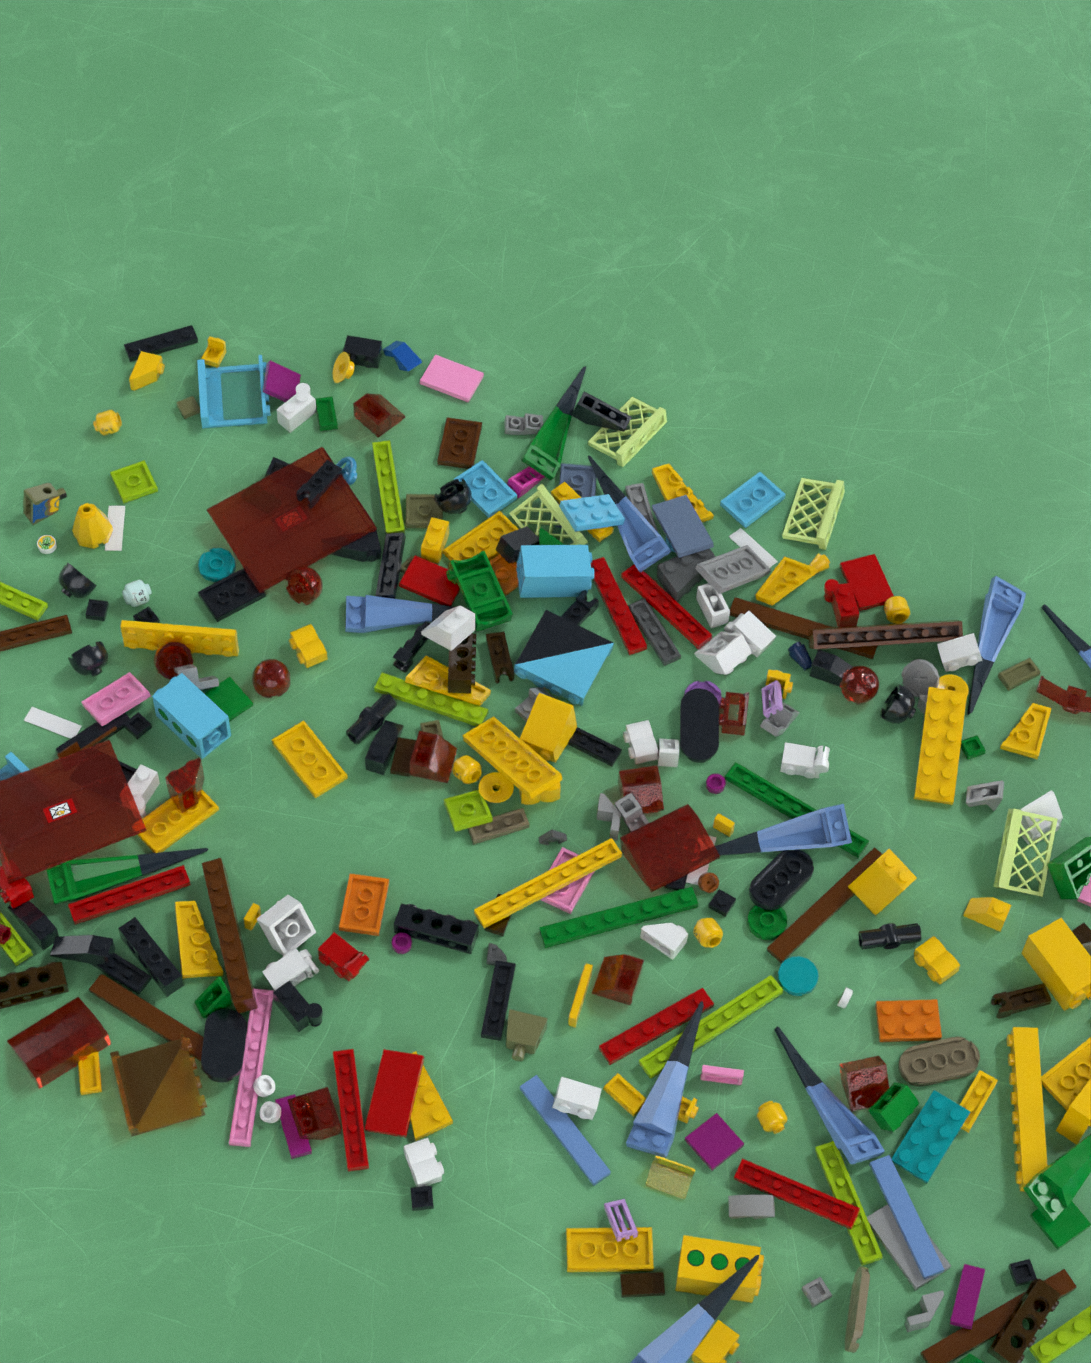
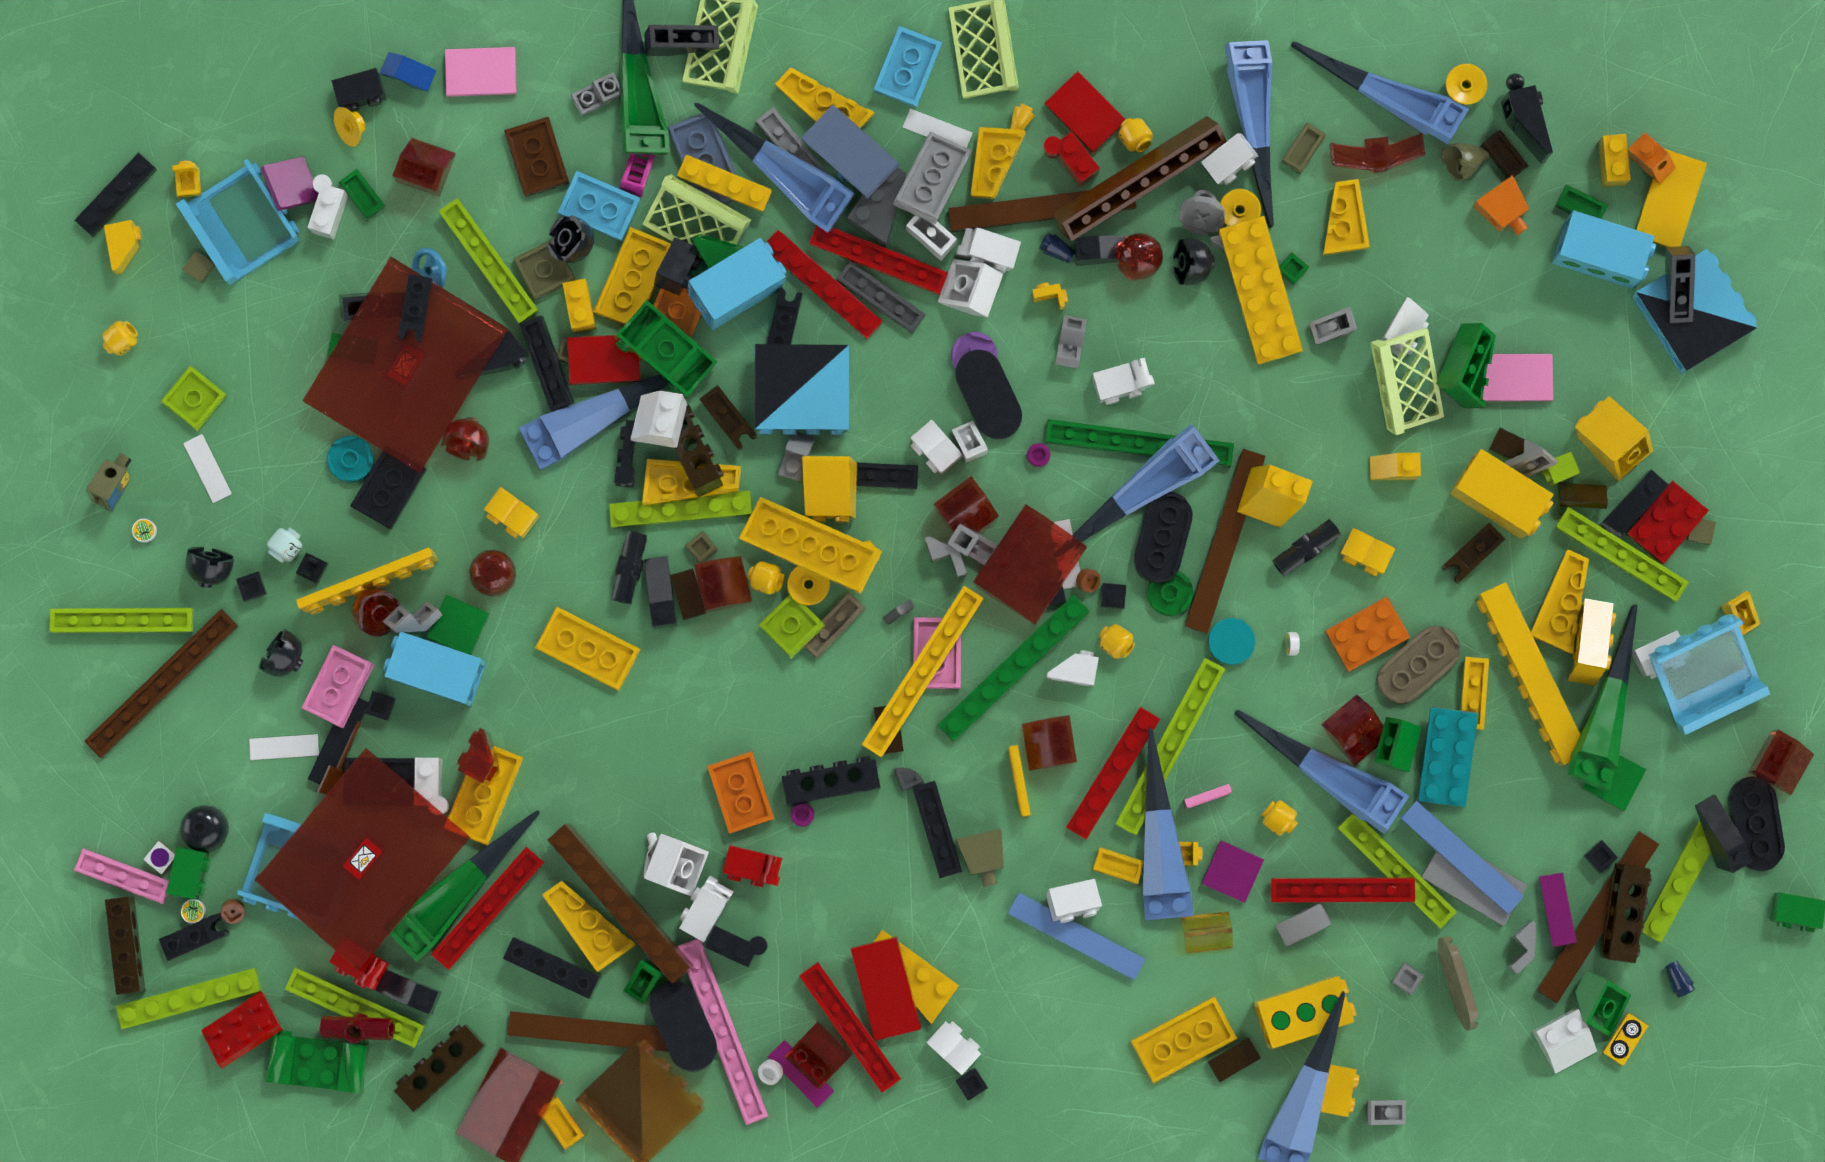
camera: 25 degrees left, 25 degrees up
(85, 949) = (478, 999): black slope -> none
(91, 526) = (185, 486): yellow cone -> none
(126, 974) = (515, 995): black plate -> none
(251, 917) = (632, 867): yellow tile -> none
(264, 1086) = (748, 1047): white tile -> none
(591, 512) = (740, 186): medium azure plate -> none
(625, 1233) = (1194, 1019): lavender tile -> none
(724, 825) = (1072, 504): yellow tile -> none
(732, 726) = (1028, 355): clear red window -> none
(775, 698) = (1054, 320): lavender tile -> none

